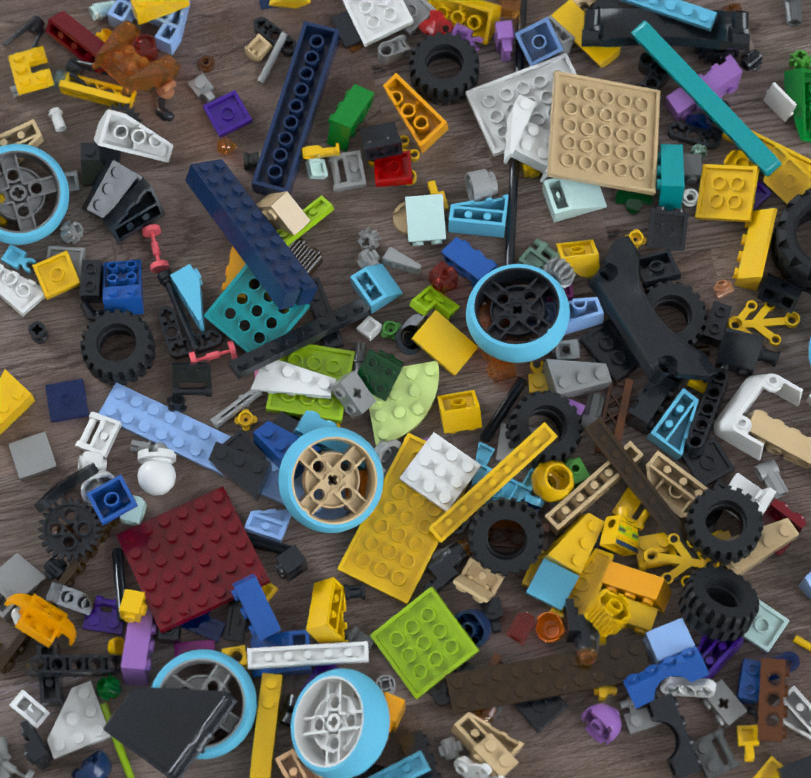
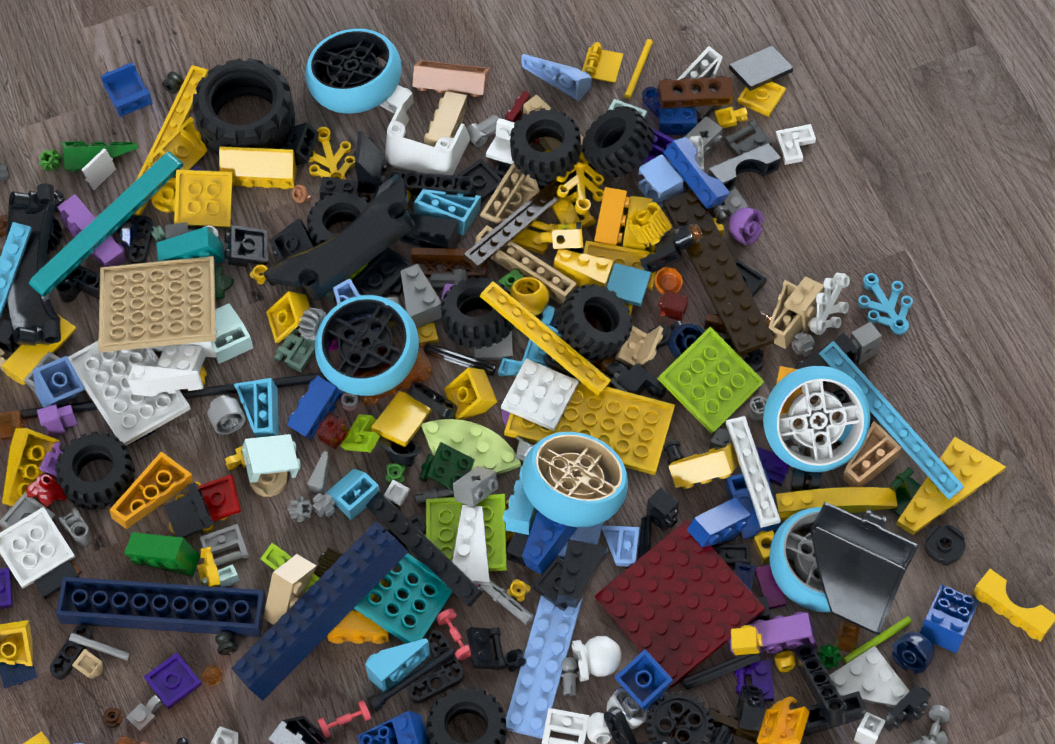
camera: 100 degrees left, 10 degrees down
(468, 374) = (432, 399): none -> black beam

